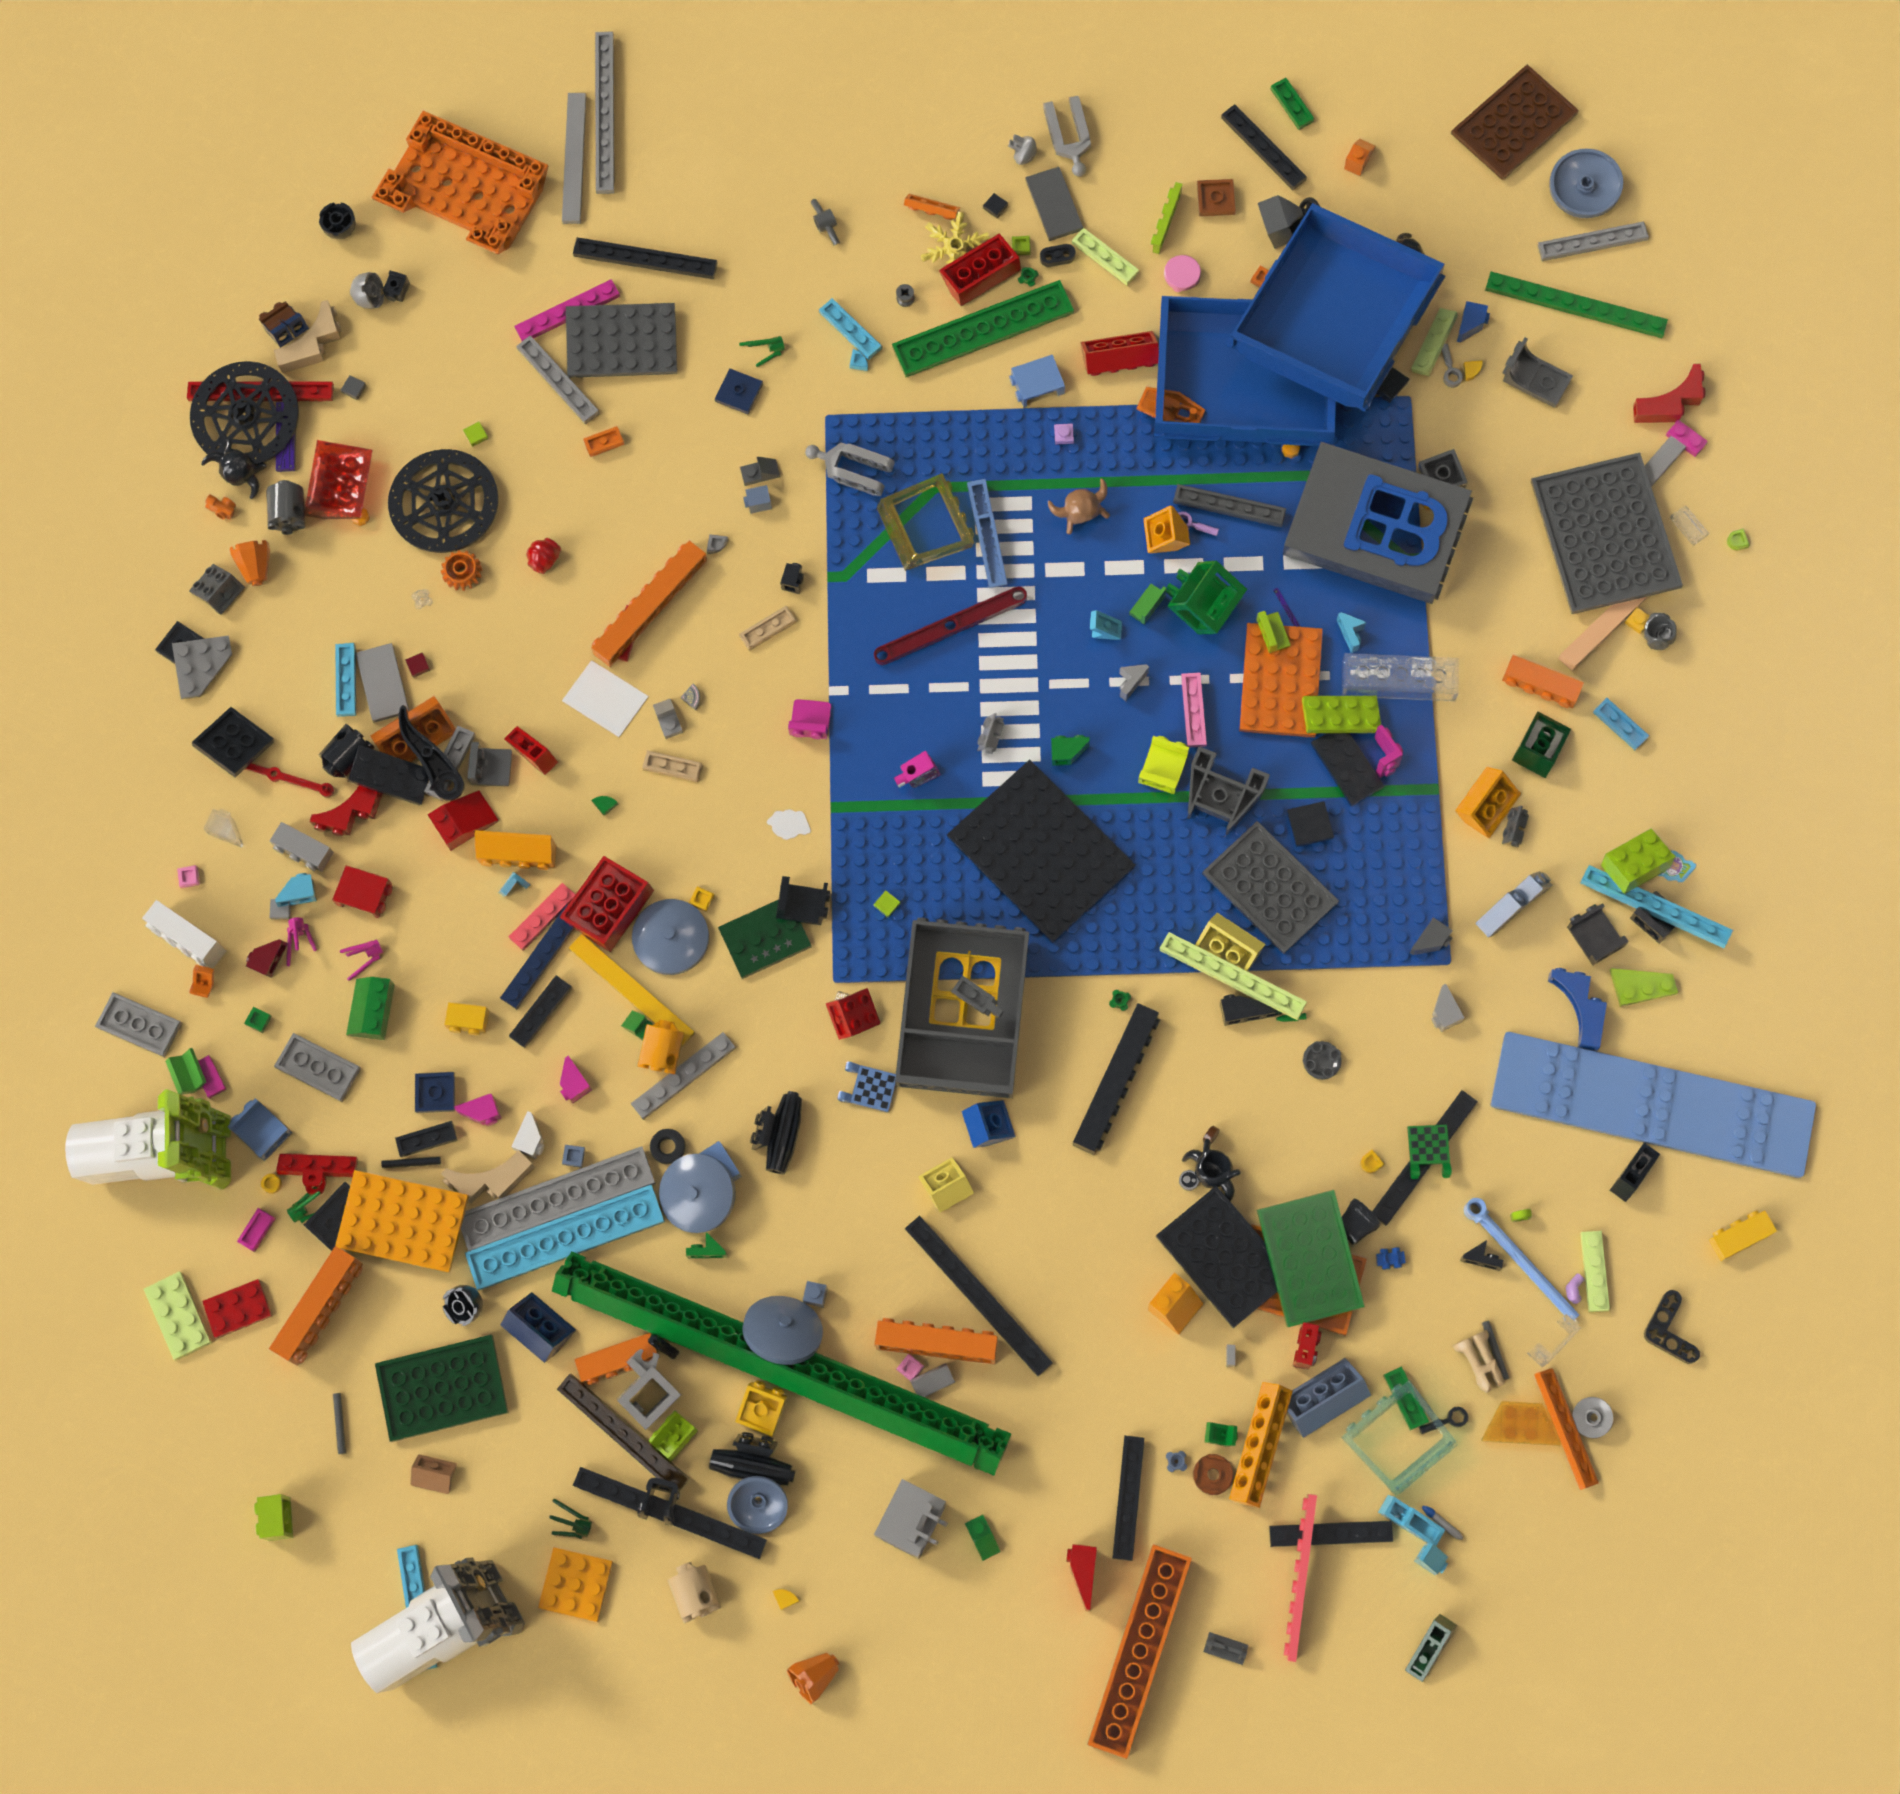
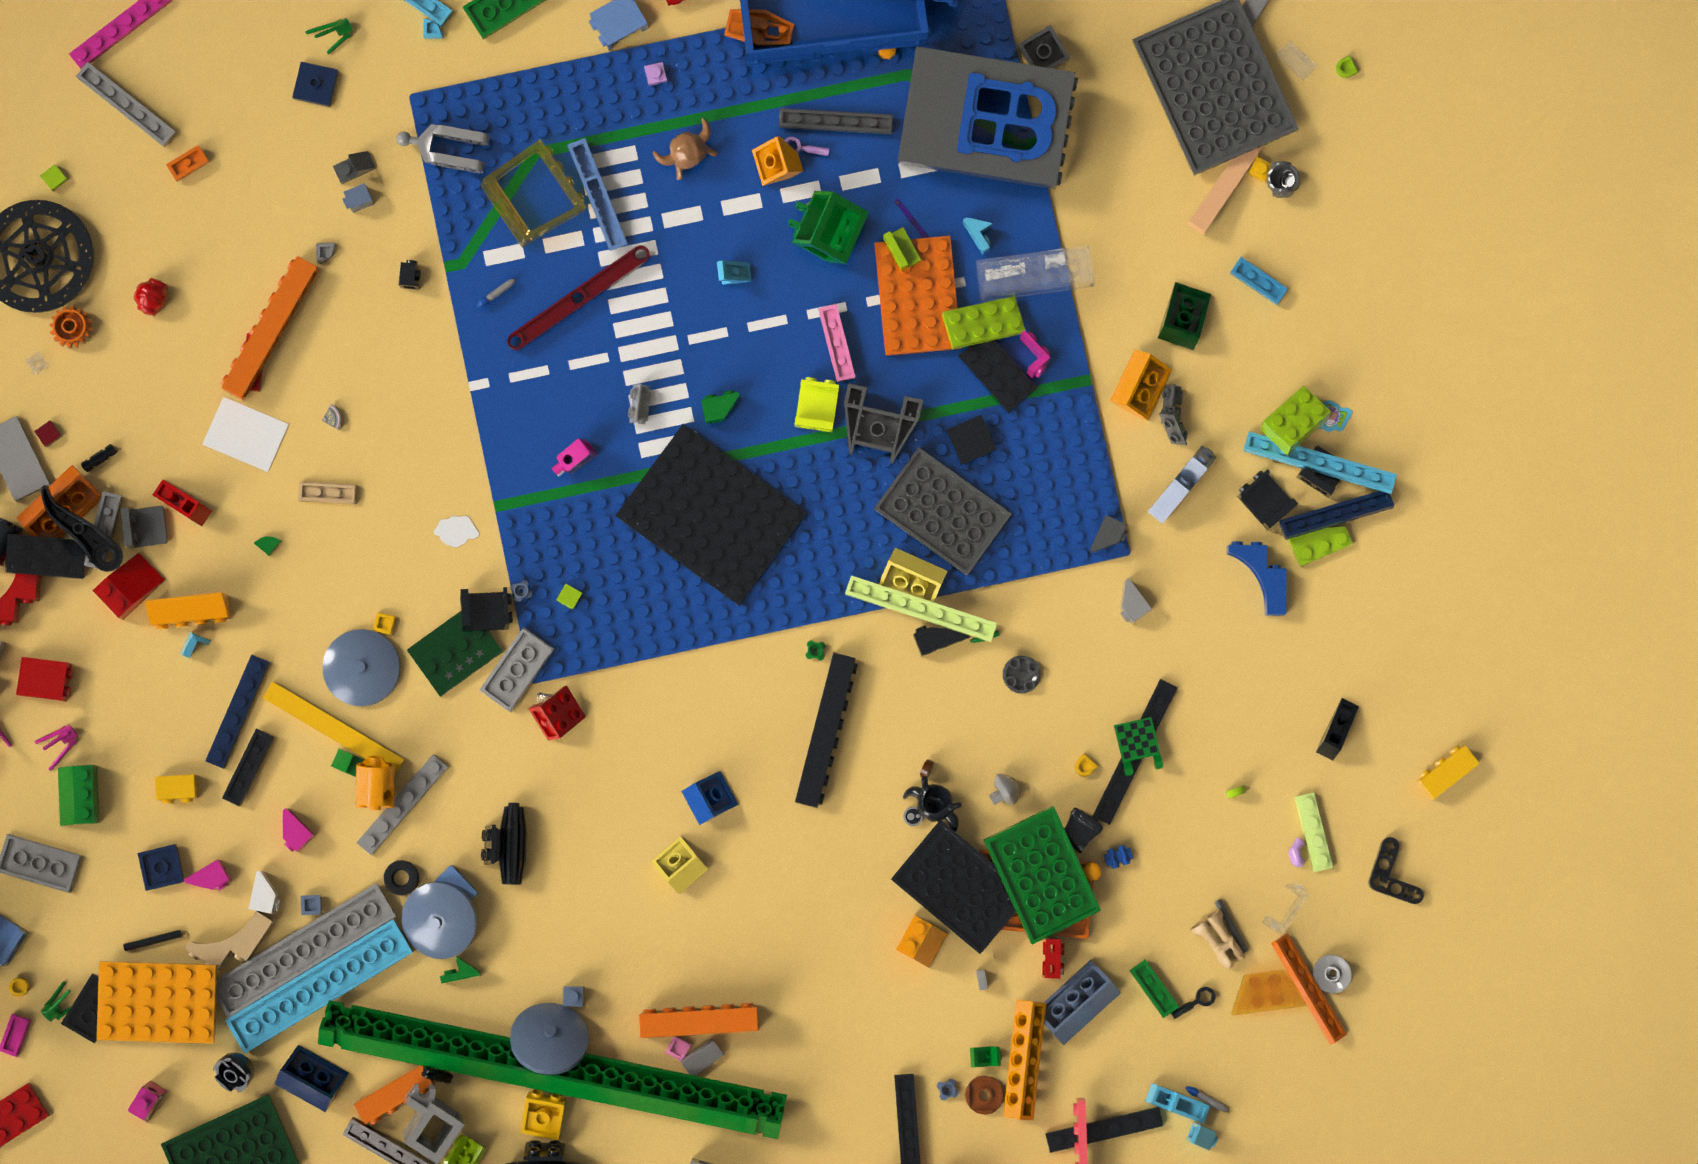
camera: 20 degrees left, 10 degrees up
(316, 1168) = (60, 964): red plate -> none
(316, 1306) = (91, 1101): orange brick -> none
(370, 1318) = (147, 1101): none -> dark pink torso
(426, 1139) = (162, 915): black plate -> none
(460, 695) = (98, 458): none -> black axle
(541, 917) = (229, 670): coral plate -> none
(607, 903) = (291, 647): red slope -> none
(621, 340) = (183, 50): dark grey plate -> none
(667, 718) = (312, 444): light grey slope -> none
(767, 628) = (394, 331): tan tile -> none
(810, 719) = (456, 420): dark pink bracket -> none
(822, 965) = (517, 669): none -> light grey tile
(836, 886) = (516, 590): none -> sand blue plate
(870, 608) = (495, 293): none -> light grey piece
(871, 1089) = (589, 782): medium blue flag -> none
(960, 1054) = (665, 734): dark grey panel -> none
(976, 997) = (675, 682): dark grey hinge -> none
(978, 1296) = (730, 967): black plate -> none
(1135, 676) = (773, 318): light grey slope -> none
(1148, 603) = (771, 239): bright green panel -> none
(1288, 1170) = (1007, 790): none -> light grey piece
(1362, 1266) = (1092, 871): none -> light orange tile
(1423, 1463) = (1181, 1046): clear light blue windscreen -> none
(1476, 1257) = (1199, 839): black slope -> none
(1514, 848) = (1175, 431): none -> dark grey hinge
(1518, 1256) = (1240, 833): light blue piece -> none
(1542, 681) = (1175, 251): orange brick -> none
(1653, 1104) = (1344, 658): medium blue plate -> none
(1665, 960) = (1336, 514): none -> dark blue plate

